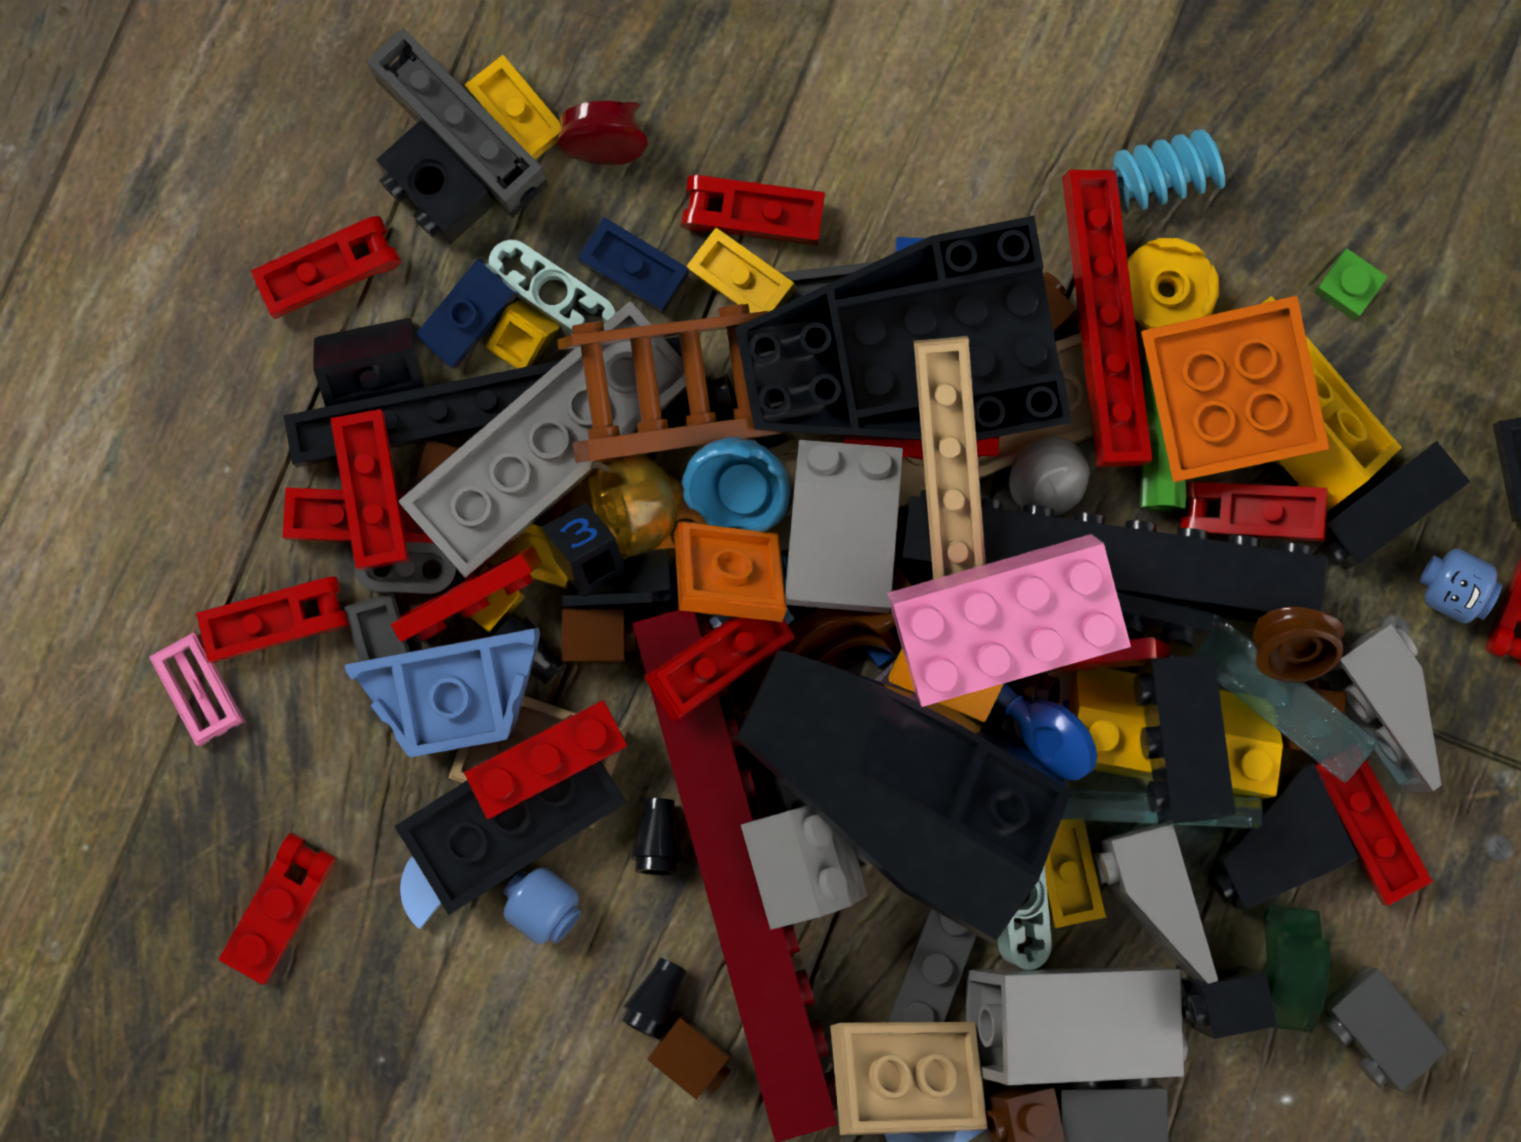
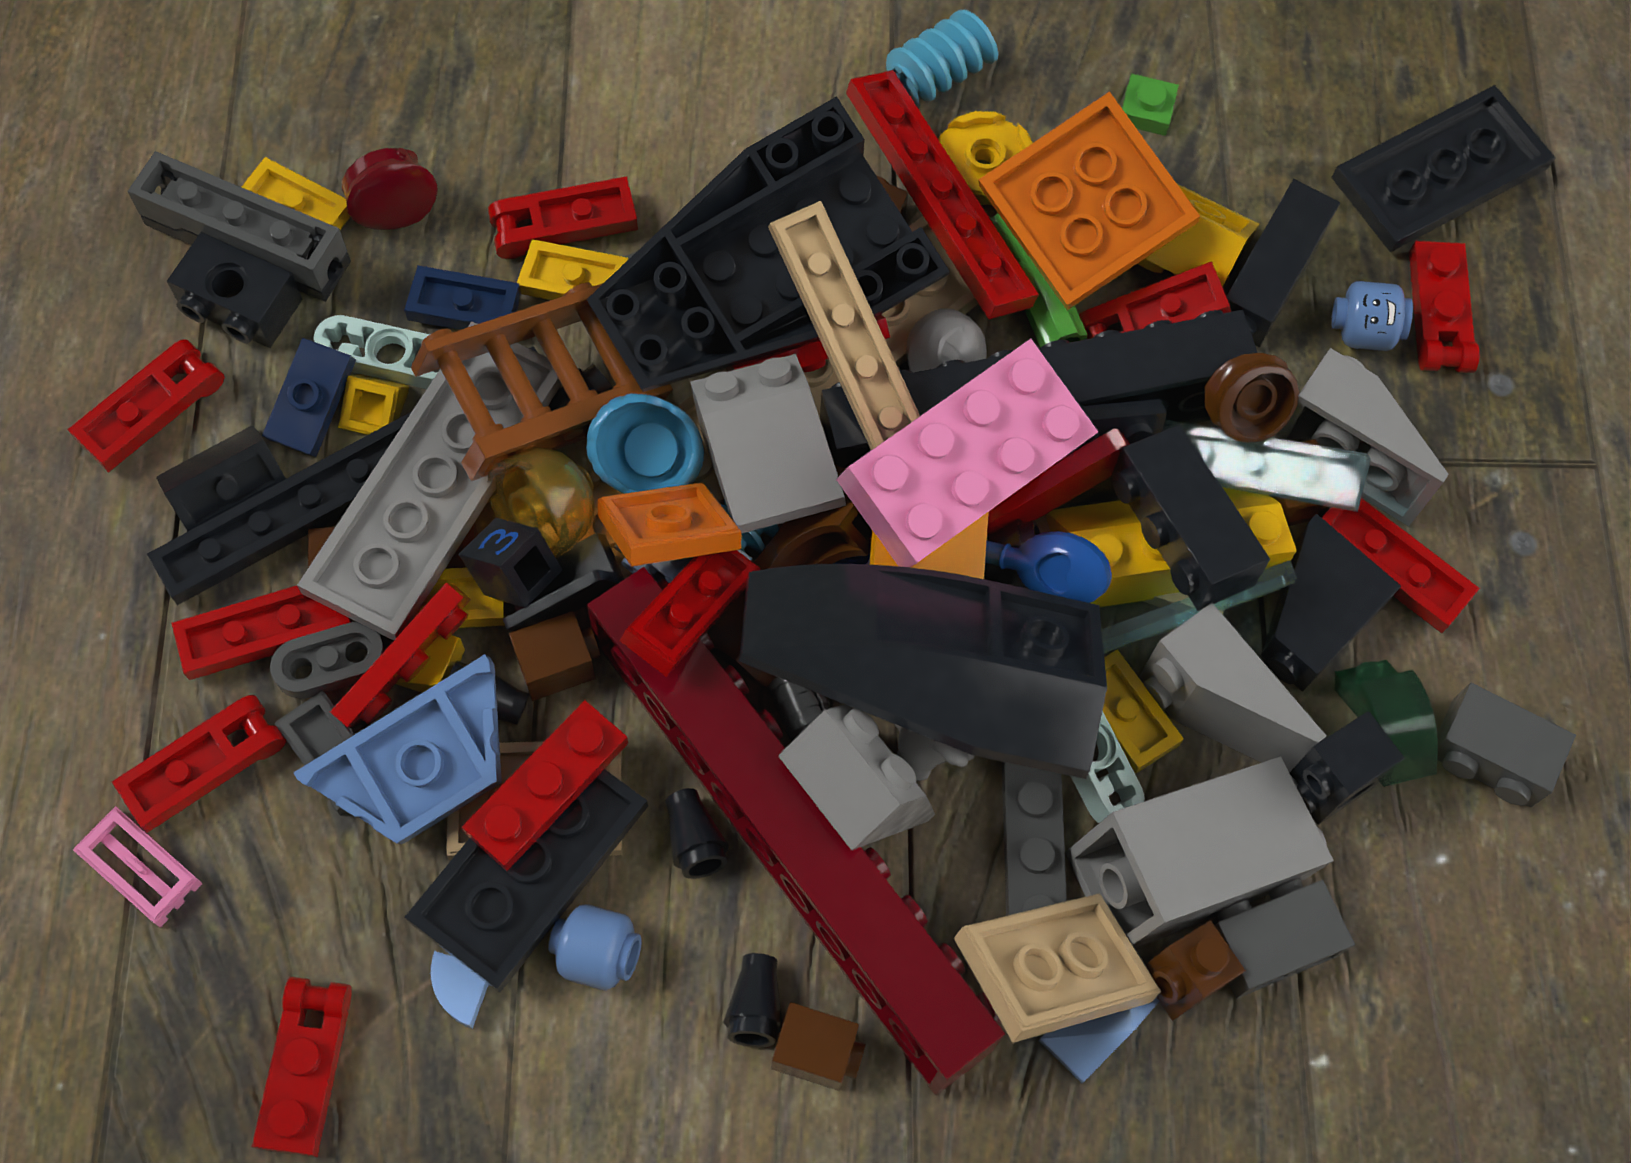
camera: 25 degrees left, 15 degrees down
(370, 489) = (263, 588): red plate -> none

